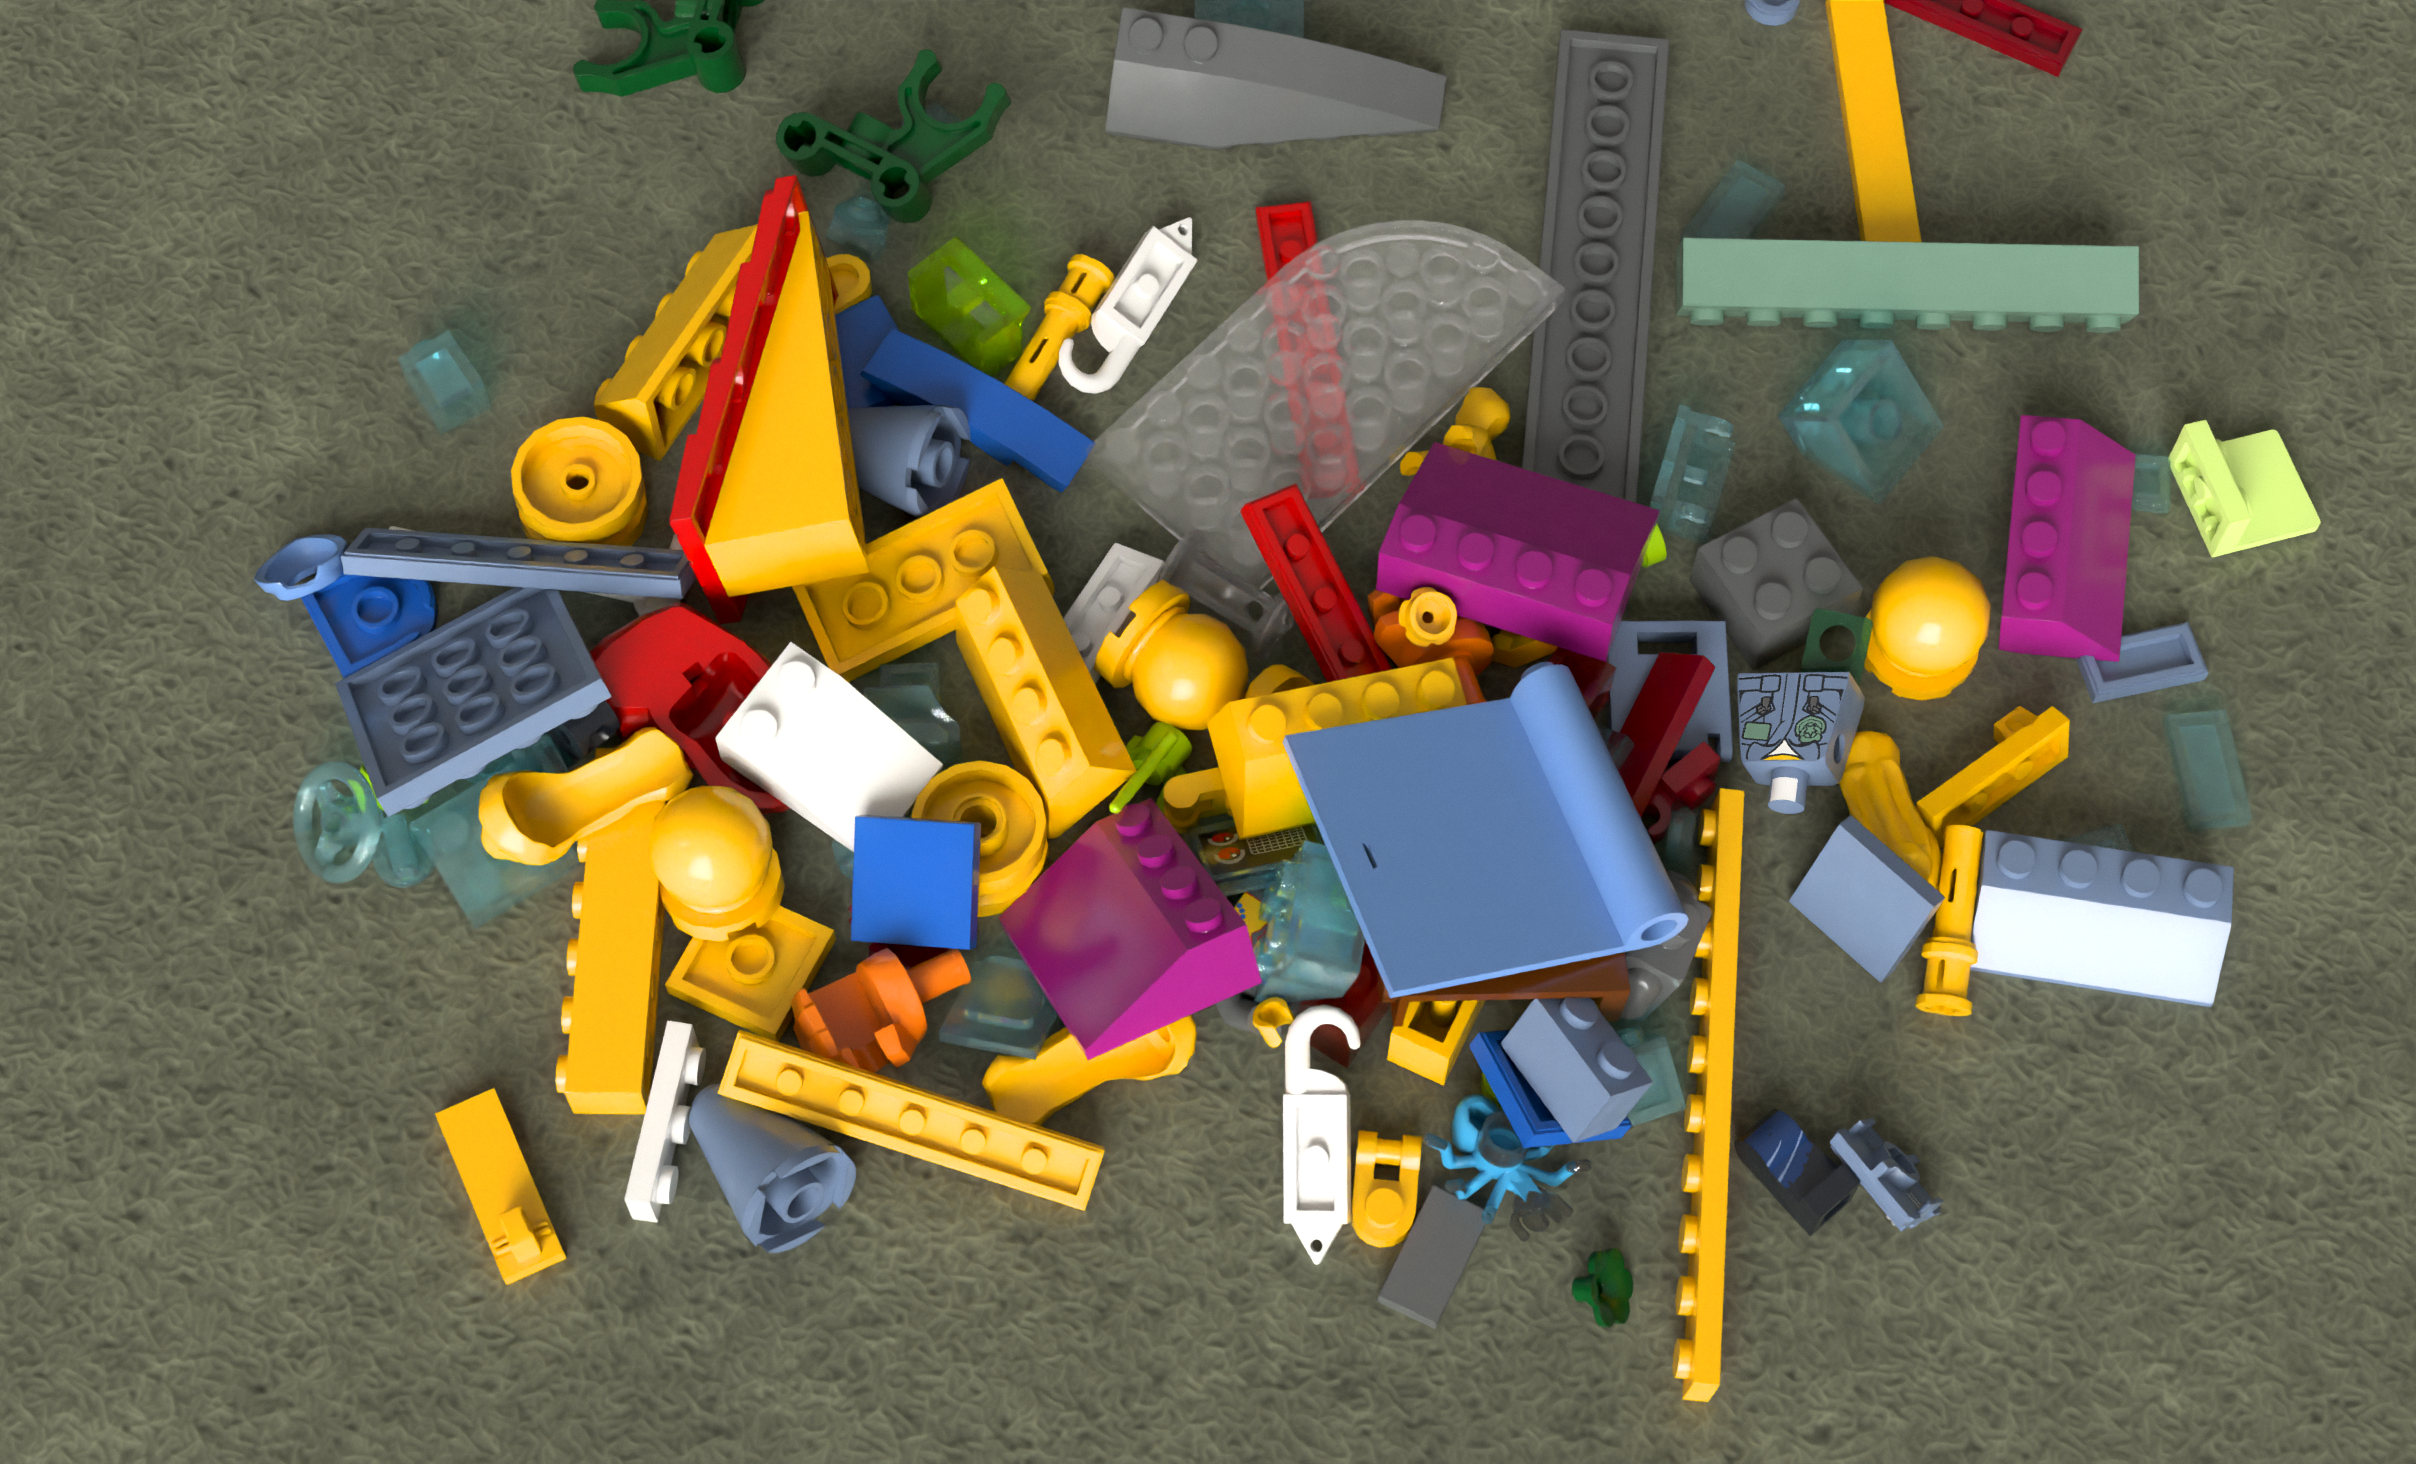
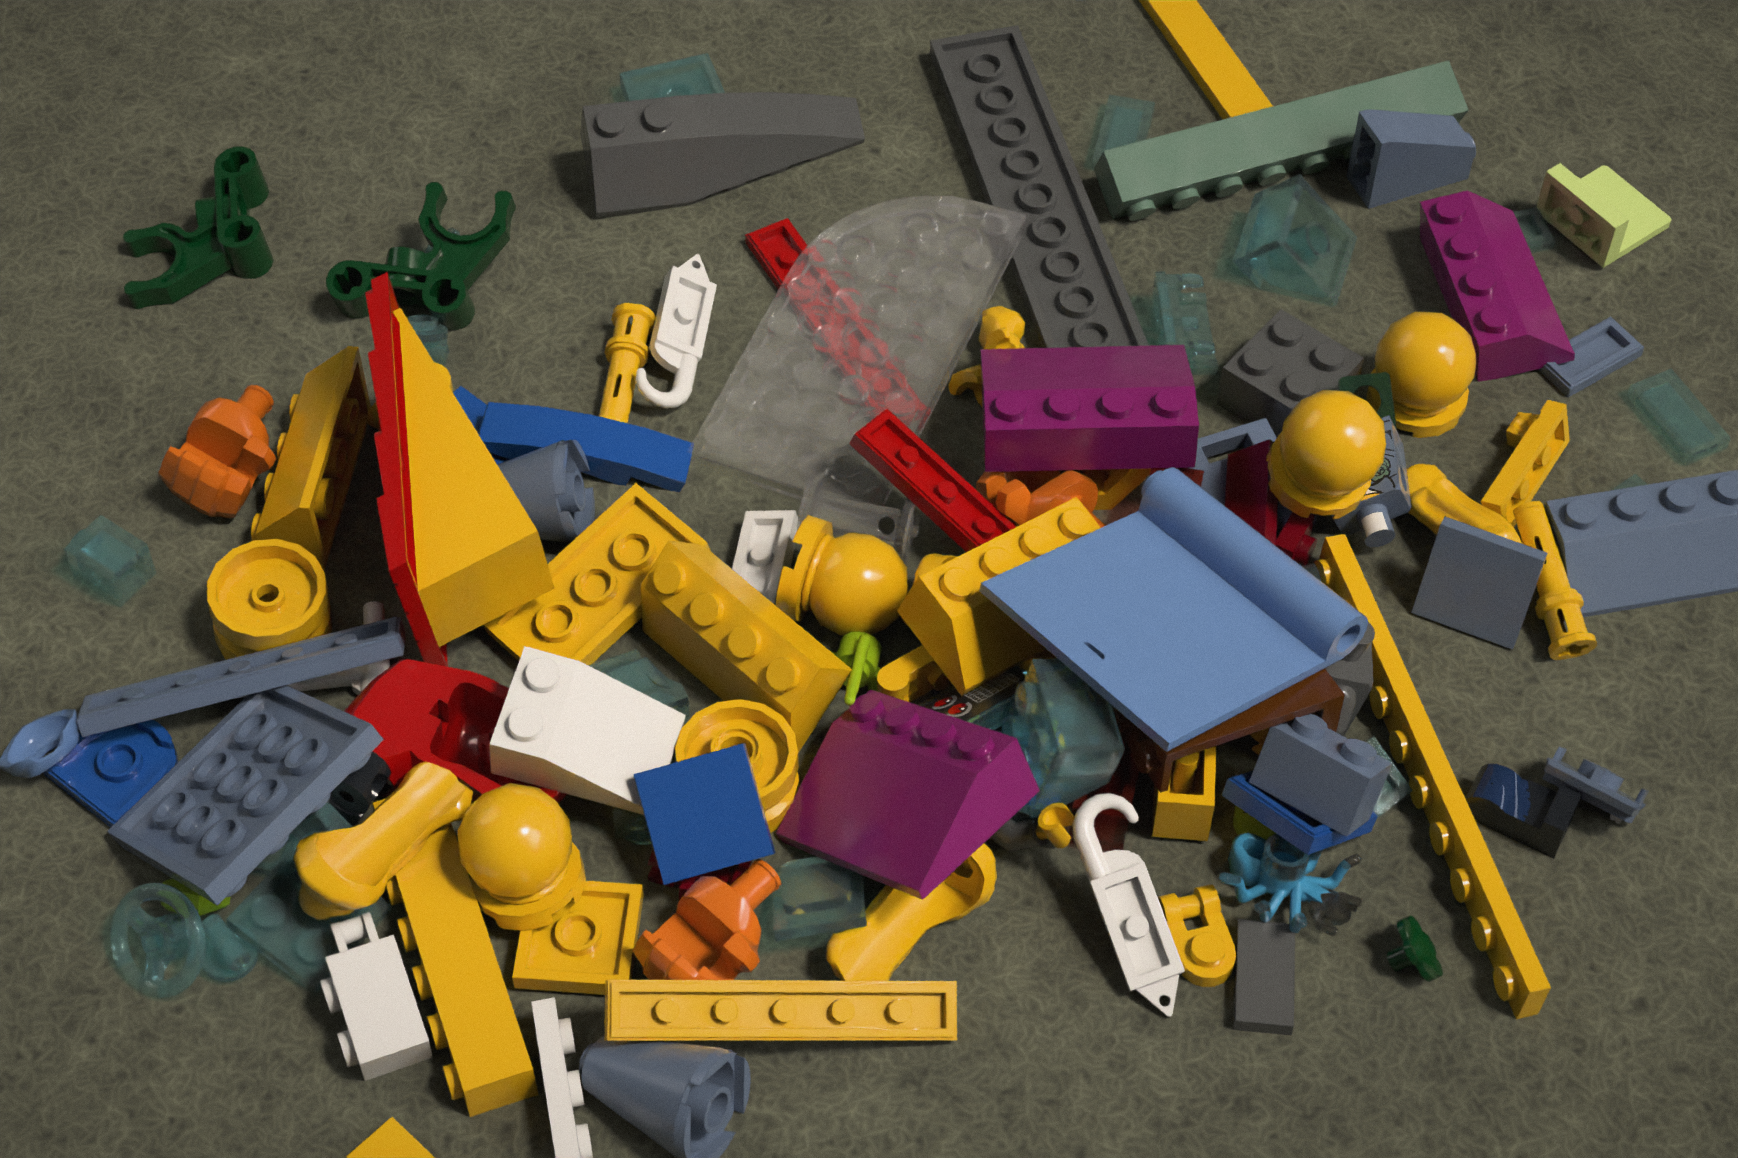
camera: 20 degrees left, 10 degrees down
(519, 960) = (375, 1001): none -> white brick
(597, 298) = (221, 454): none -> orange piece
(968, 306) = (544, 367): clear neon green window -> none
(1443, 617) = (1050, 464): yellow plate -> none
(1748, 701) = (1326, 454): none -> yellow tile
(2043, 346) = (1407, 154): none -> sand blue slope

